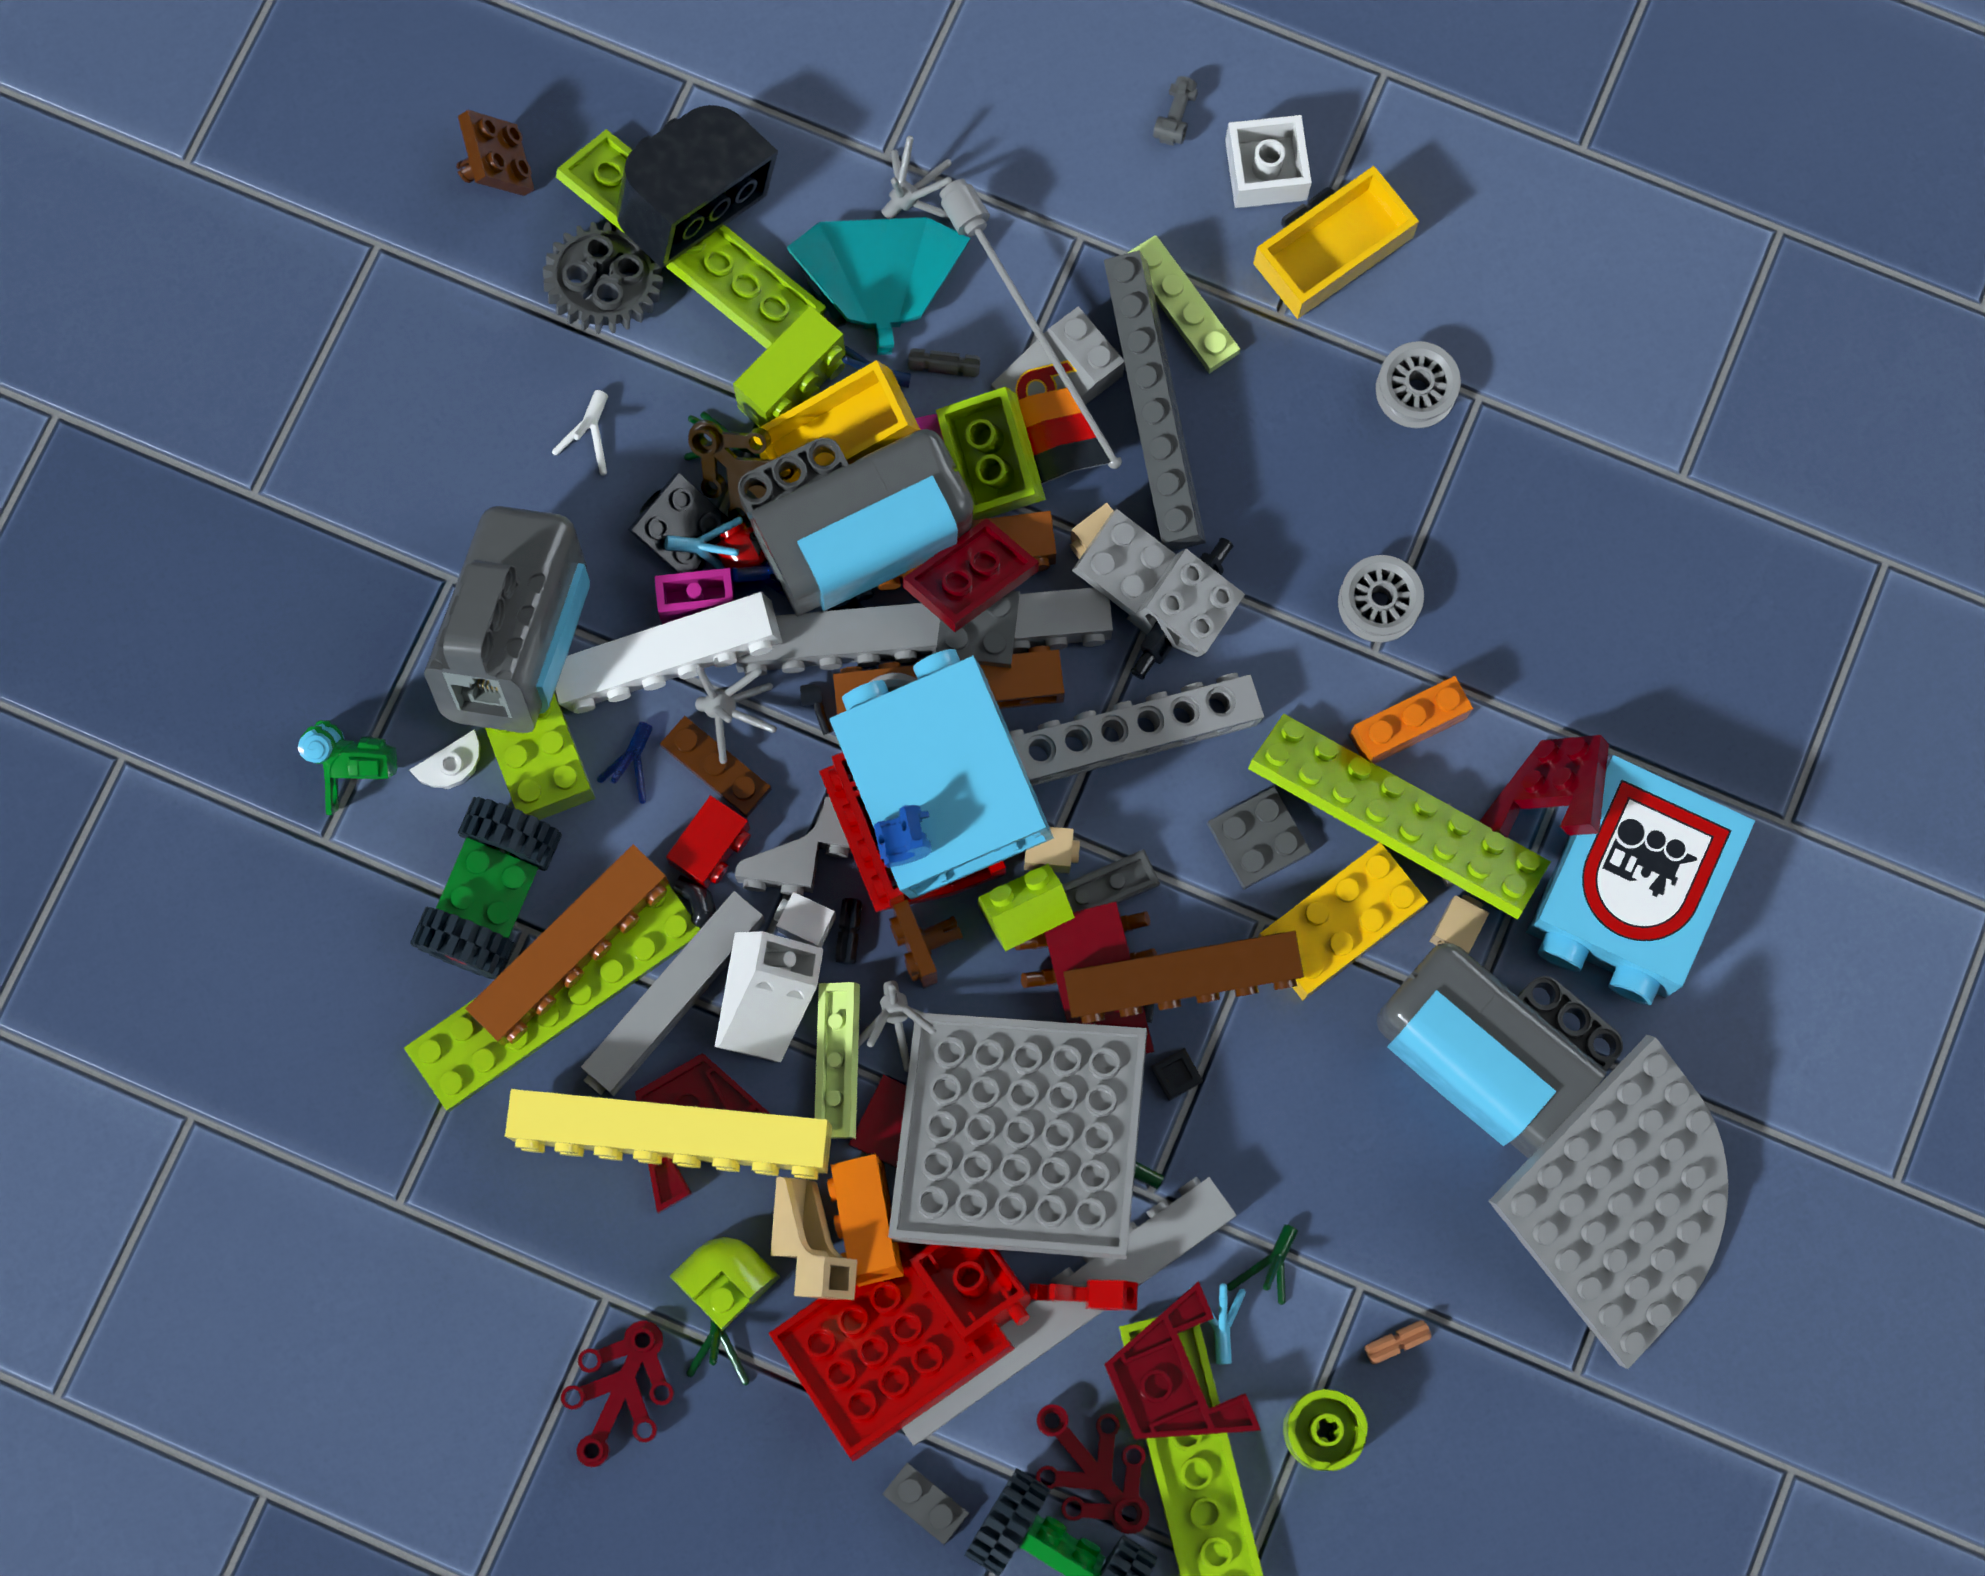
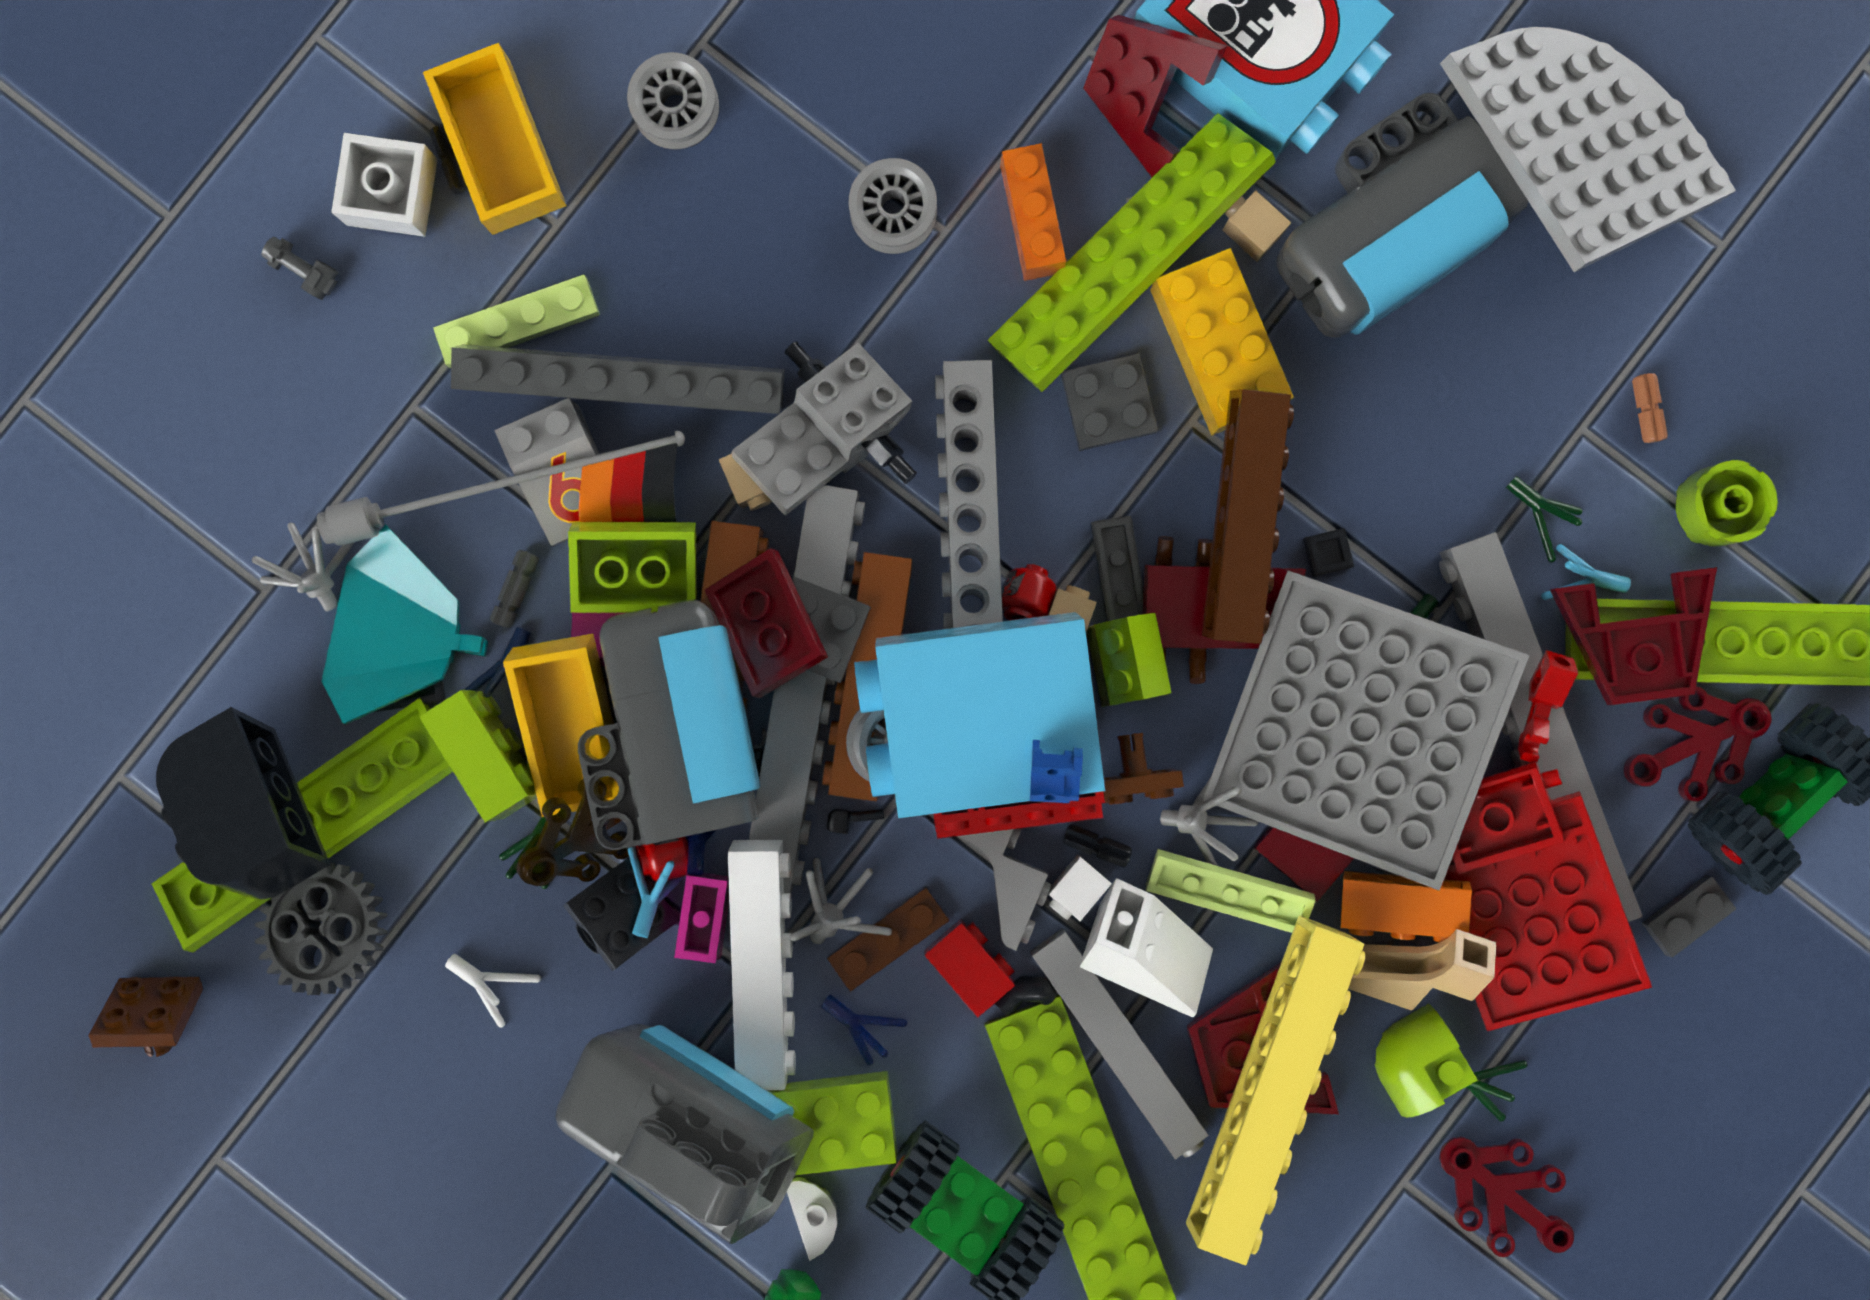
camera: 70 degrees left, 10 degrees up
(568, 946) = (1047, 1144): dark orange brick -> none
(1063, 804) = (1027, 593): none -> red head

